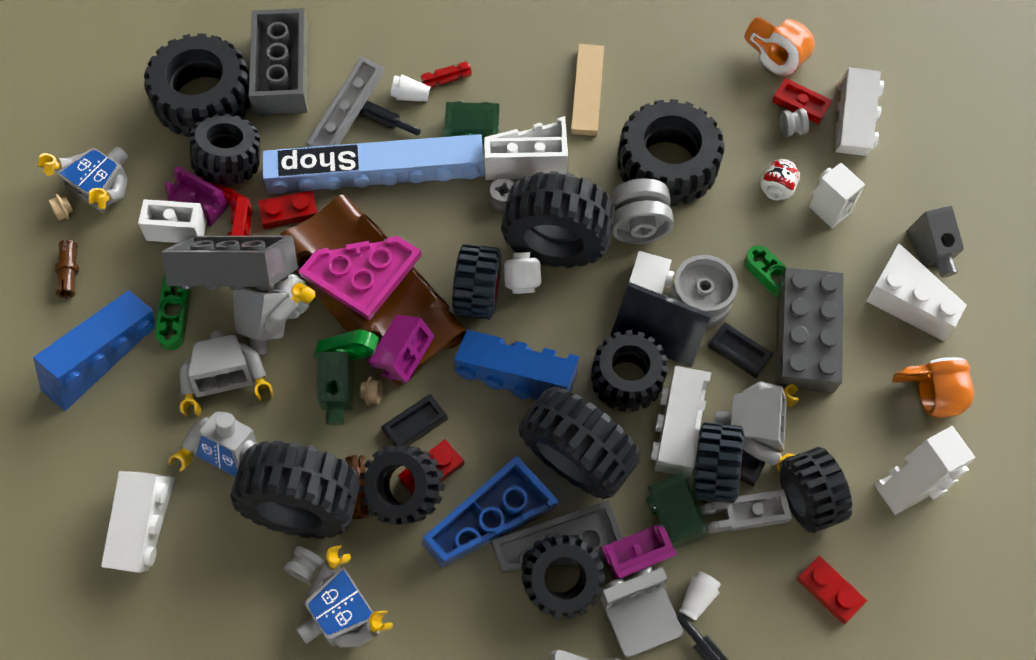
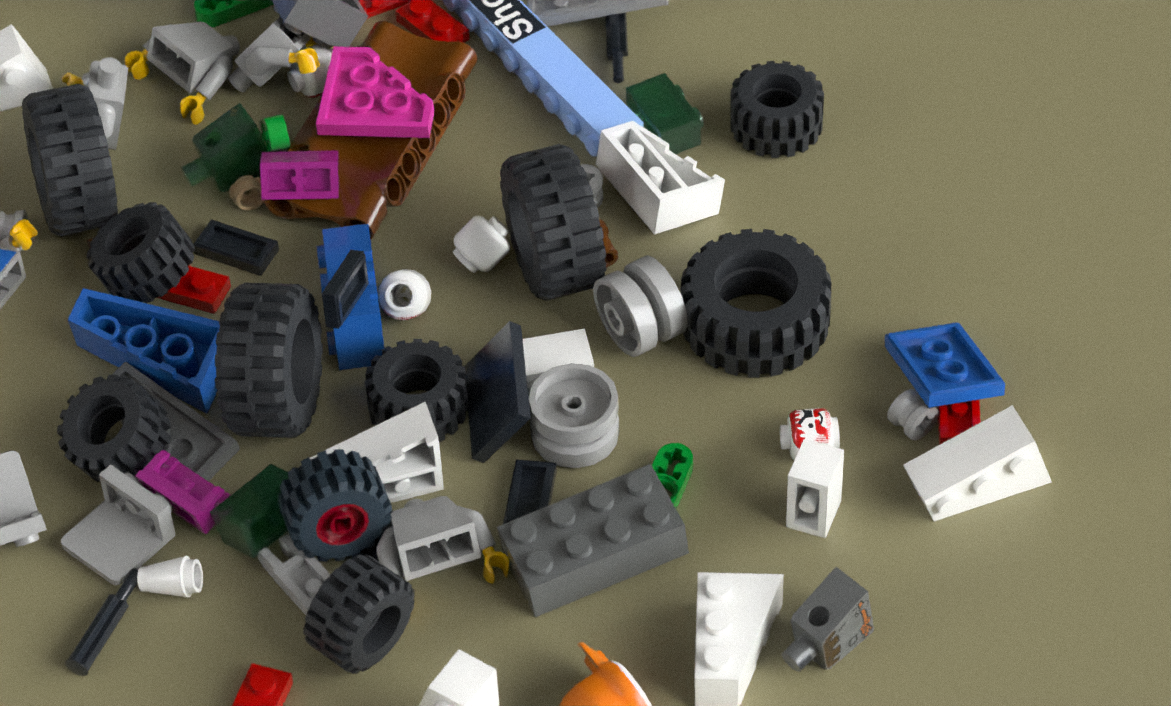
camera: 65 degrees right, 15 degrees down
(409, 89) = (668, 41): white cone -> none
(446, 74) = (714, 63): red axle -> none
(476, 281) = (431, 199): black wheel -> none
(512, 46) = (776, 109): none -> black tyre
(539, 335) = (391, 297): none -> white head
(555, 365) = (345, 289): none -> black tile
(587, 90) = (808, 199): tan tile -> none
(770, 88) = (944, 365): none -> blue tile
(781, 47) = (1030, 351): orange piece -> none

